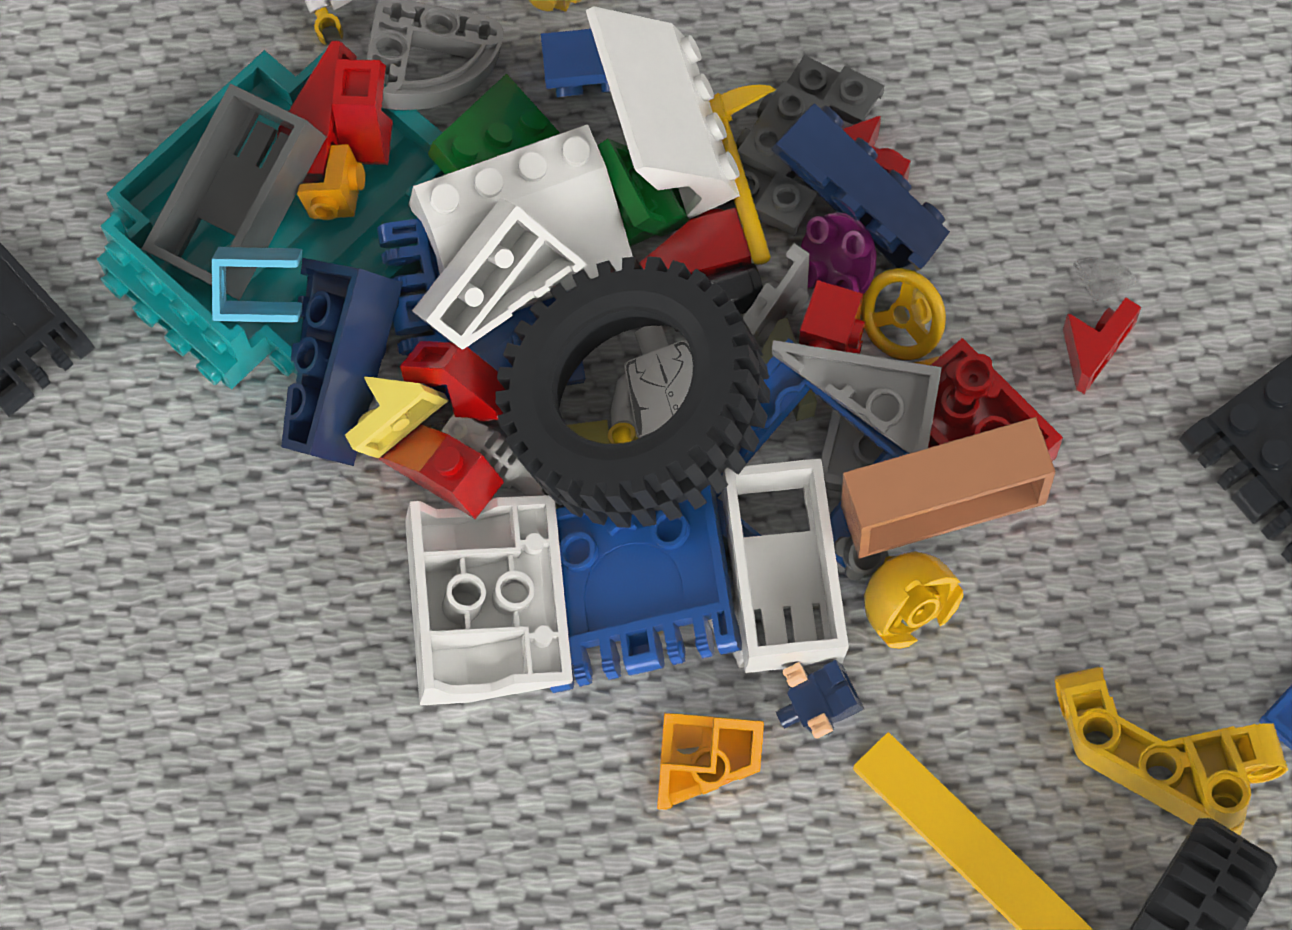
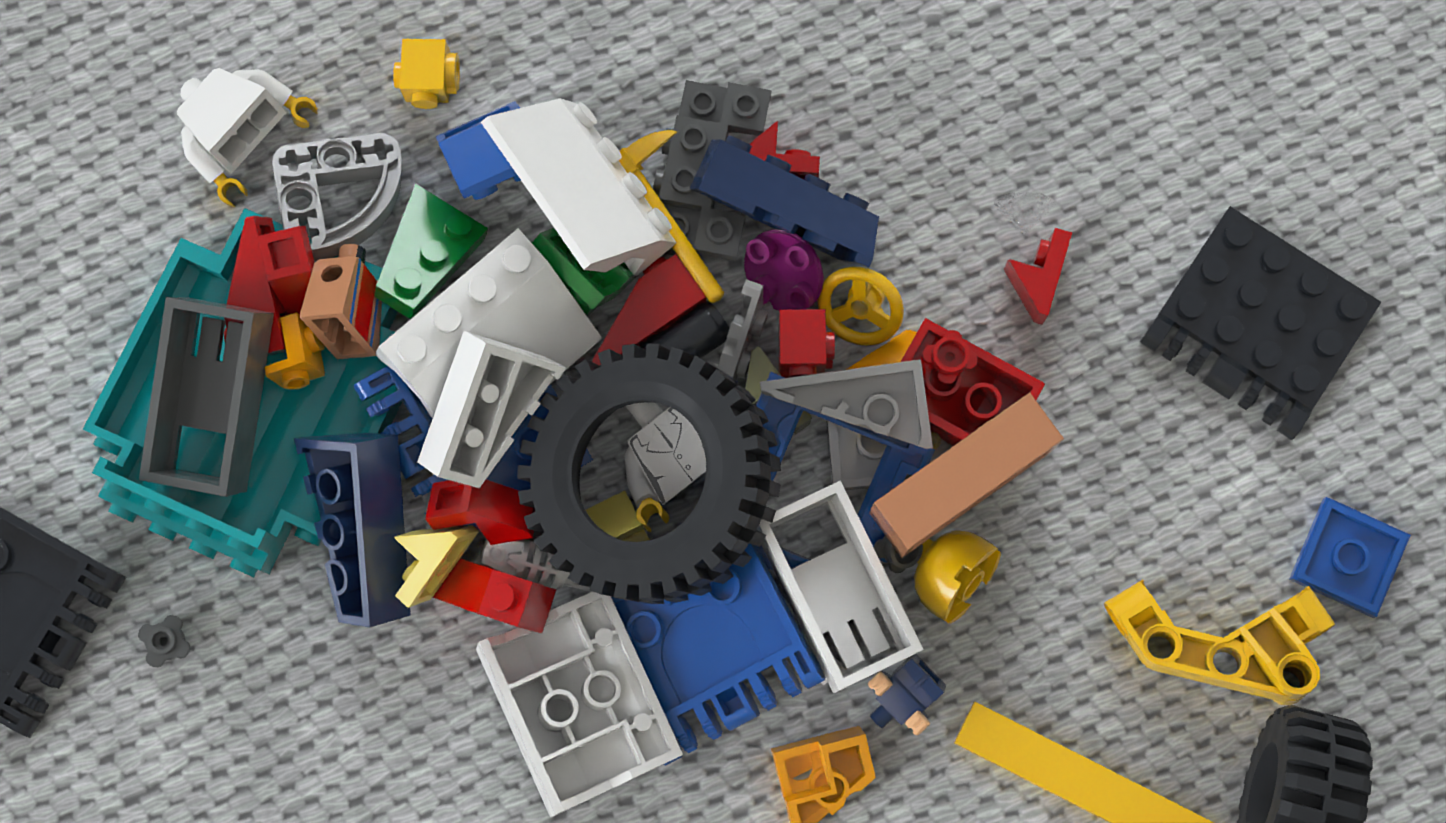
camera: 20 degrees left, 10 degrees up
(117, 426) = (176, 646): none -> dark grey plate
(252, 310) = (267, 510): medium azure piece -> none
(394, 151) = (343, 305): none -> nougat torso

